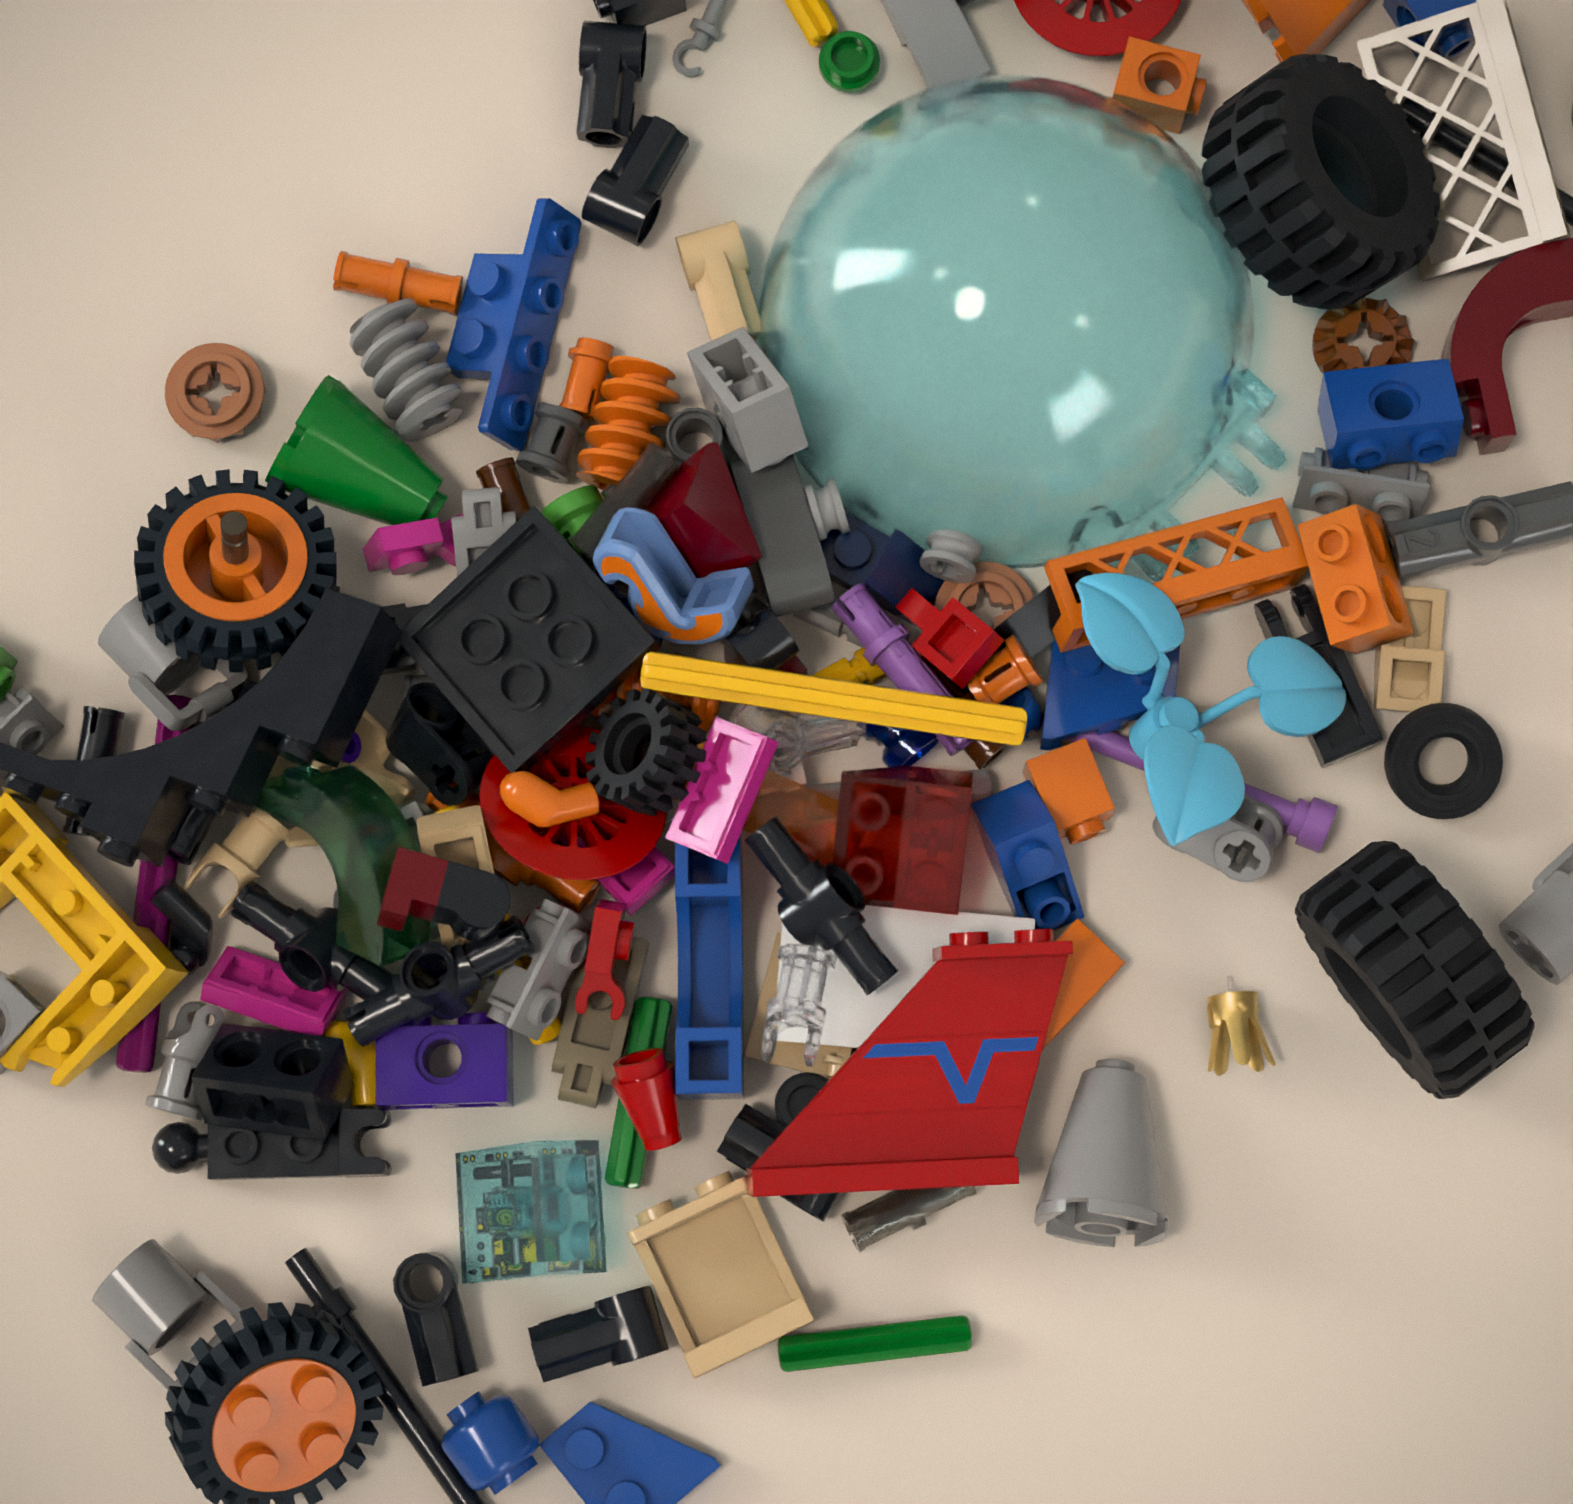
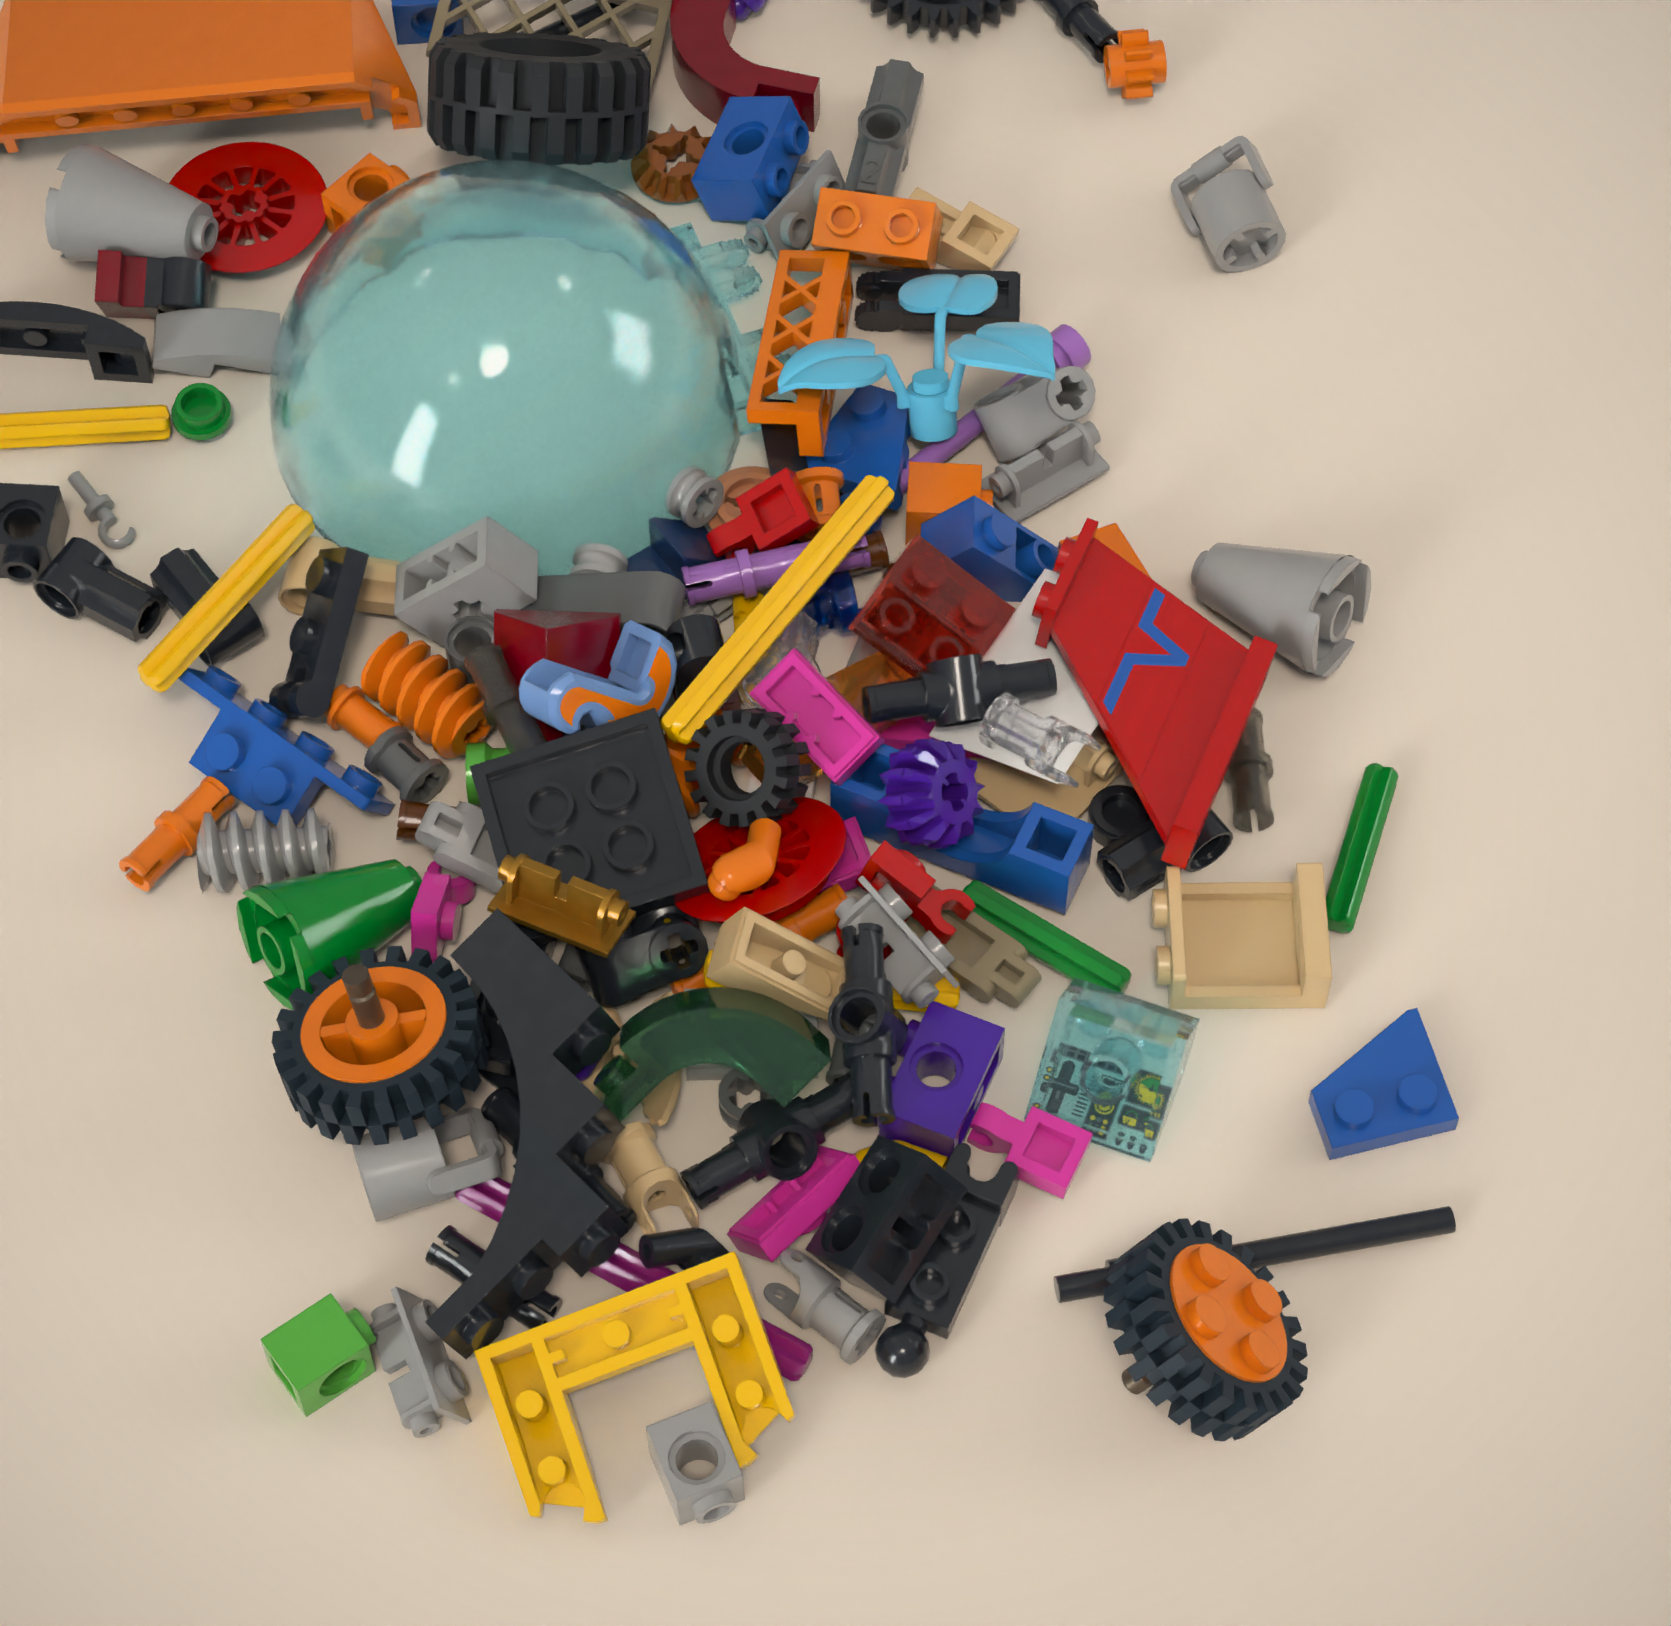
camera: 70 degrees left, 20 degrees down
(155, 1301) = (1048, 1421): light grey piece -> none
(194, 375) = (175, 1006): nougat gear -> none
(421, 1185) = (1042, 1146): none -> dark pink plate
(423, 658) = (570, 912): none -> pearl gold hinge
(436, 1326) = (1179, 1185): black piece -> none
(443, 893) = (796, 959): leg -> none
(490, 1442) = (1314, 1181): blue head -> none
(612, 1331) = (1254, 1045): black piece -> none
(630, 198) = (226, 598): none -> yellow axle
(637, 298) = (321, 633): none -> black plate
(649, 1096) = (1057, 913): red cone -> none
(701, 930) = (931, 793): none -> dark purple gear
(1148, 866) = (1047, 472): none -> light grey hinge
(1235, 1019) = (1208, 470): pearl gold piece -> none
(1415, 969) = (1234, 291): black tyre -> none
(1475, 783) = (1077, 217): black tyre -> none

